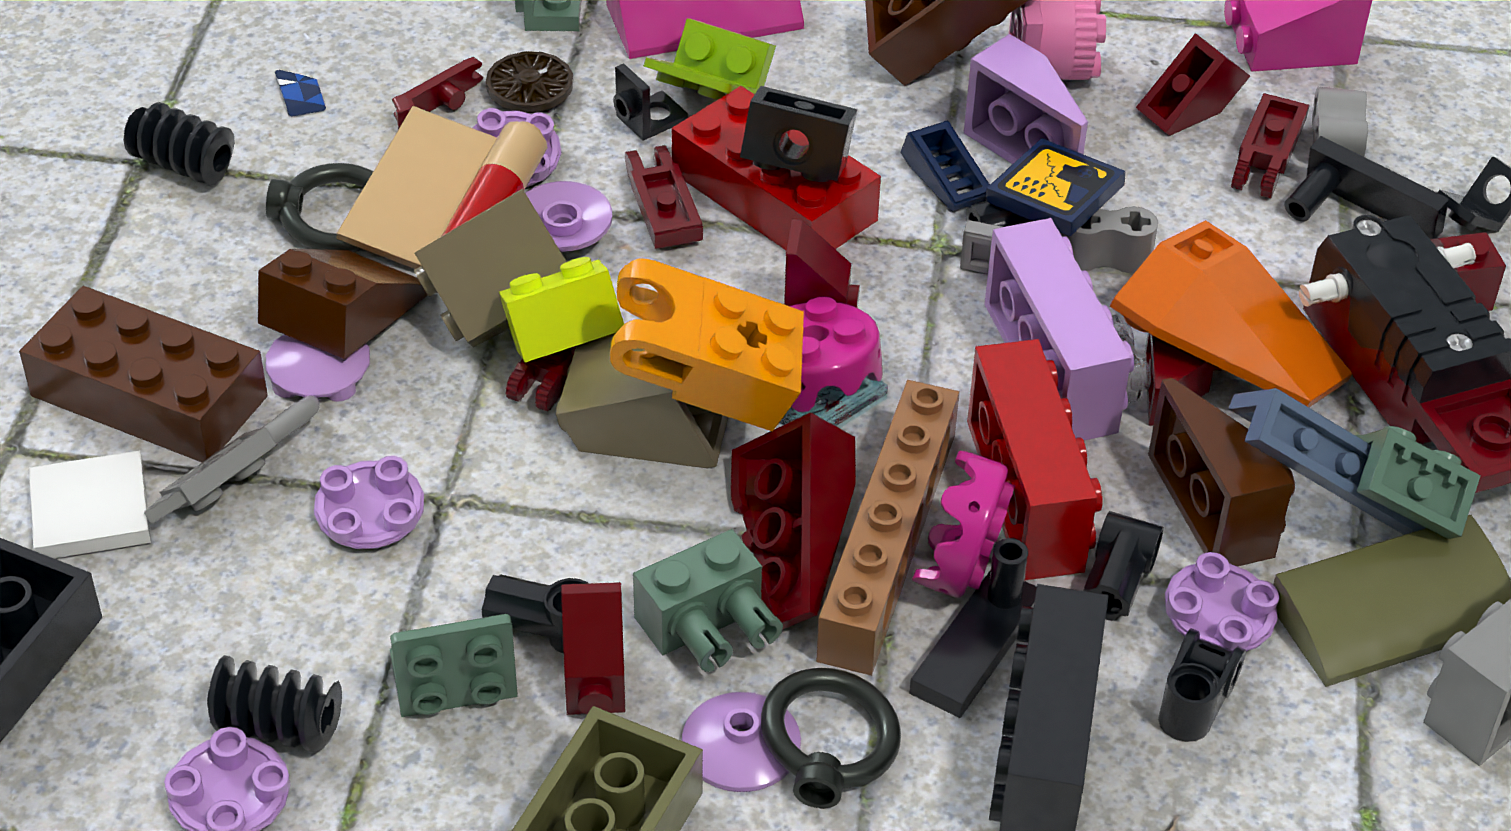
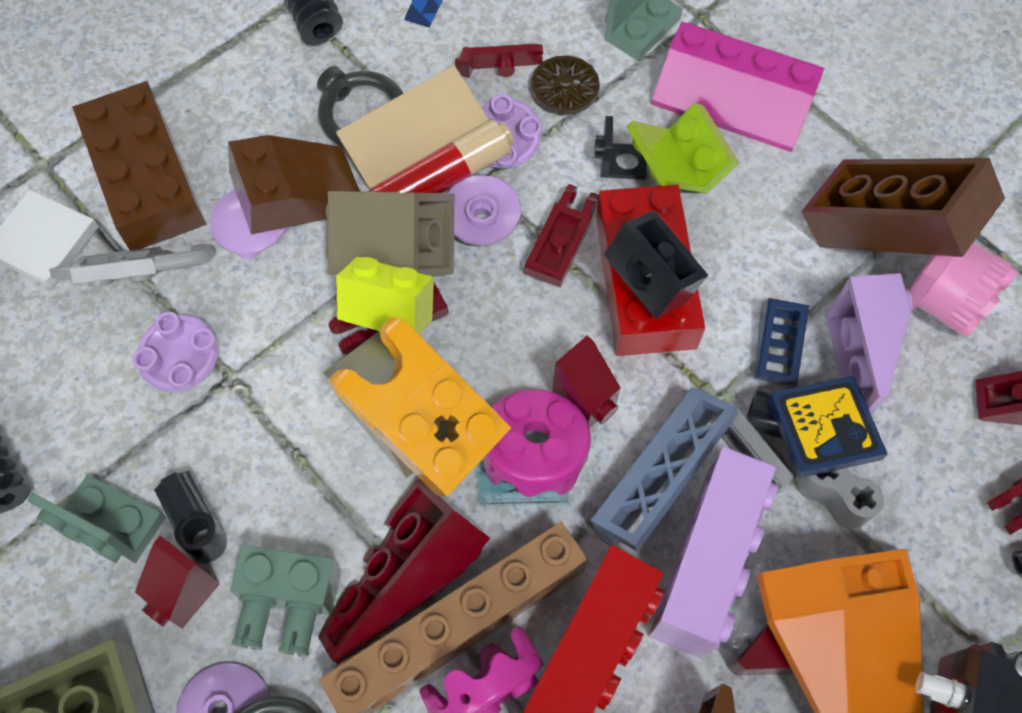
camera: 40 degrees right, 20 degrees up
(940, 297) = (657, 463): none -> sand blue fence

